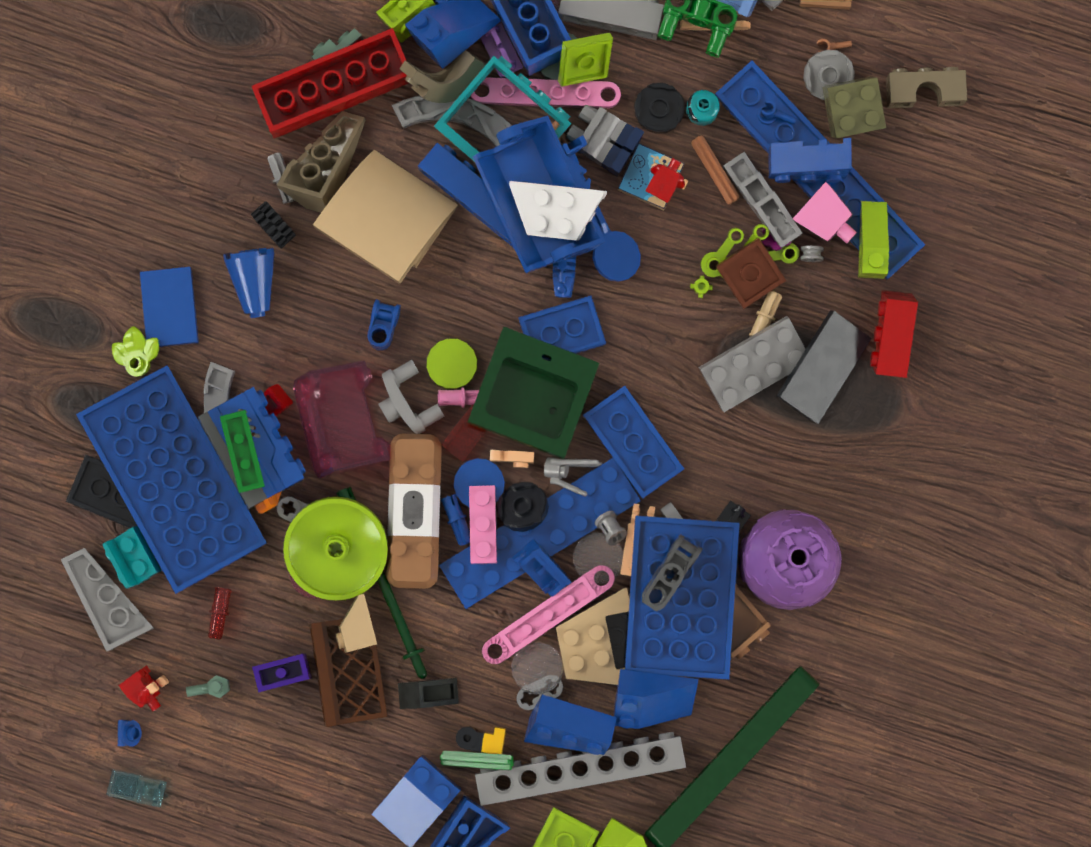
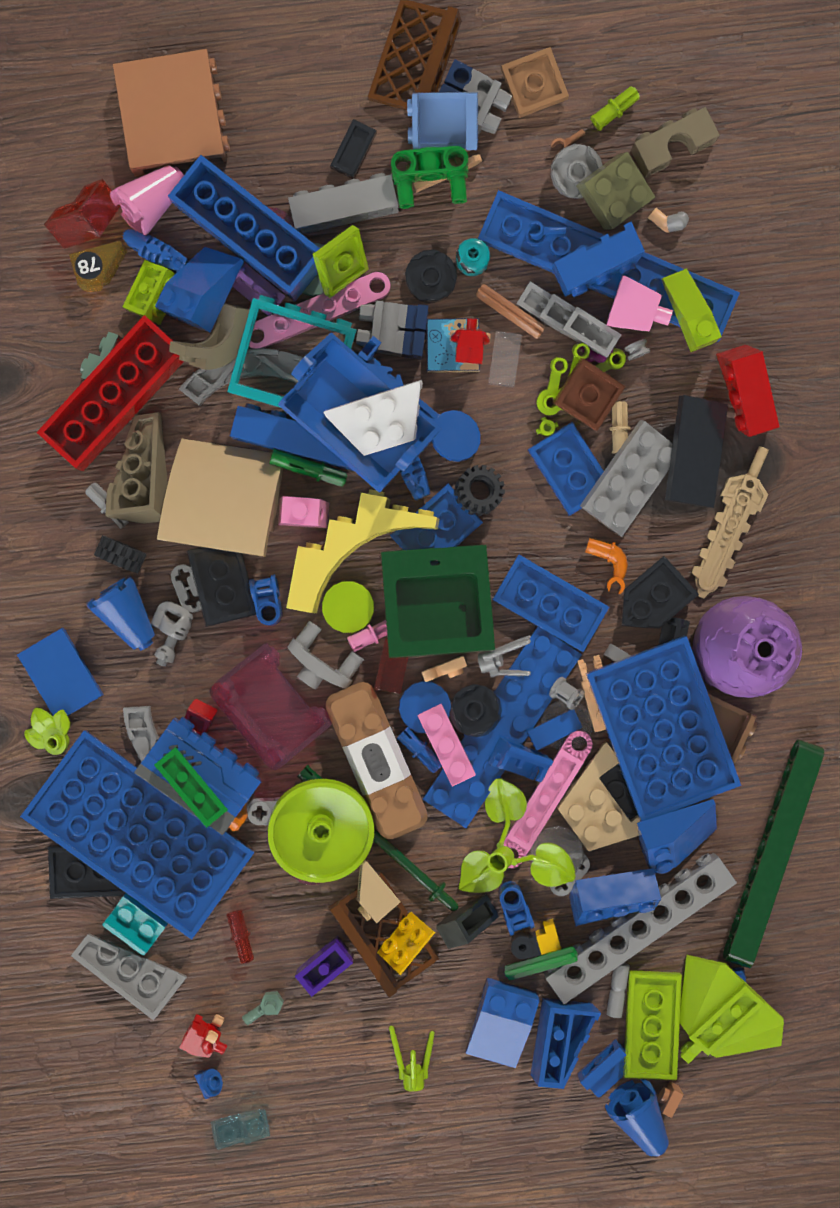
camera: 25 degrees left, 5 degrees up
(288, 313) = (174, 630): none -> light grey piece
(311, 282) = (182, 590): none -> light grey beam
(315, 811) = (413, 1075): none -> lime plant
(349, 292) = (221, 585): none -> black tile
(365, 682) = (405, 942): none -> yellow hinge
(451, 262) = (303, 512): none -> bright pink torso
(462, 651) = (484, 871): none -> lime plant
(473, 225) = (308, 467): none -> green axle
(476, 703) = (516, 911): none -> blue piece
(510, 296) = (374, 518): none -> light yellow arch
(534, 821) = (617, 991): none -> light grey piece
(585, 555) = (554, 729): none -> blue piece
(626, 303) = (490, 480): none -> black tyre
(675, 561) = (648, 705): dark grey piece -> none
(691, 209) = (505, 359): none -> clear tile
(703, 328) = (567, 466): none -> blue tile
(709, 425) = (612, 554): none -> orange piece
(730, 479) = (656, 596): none -> black tile
(847, 427) = (742, 497): none -> tan bar
(888, 35) = (615, 108): none -> lime axle
(890, 156) = (669, 223): none -> arm

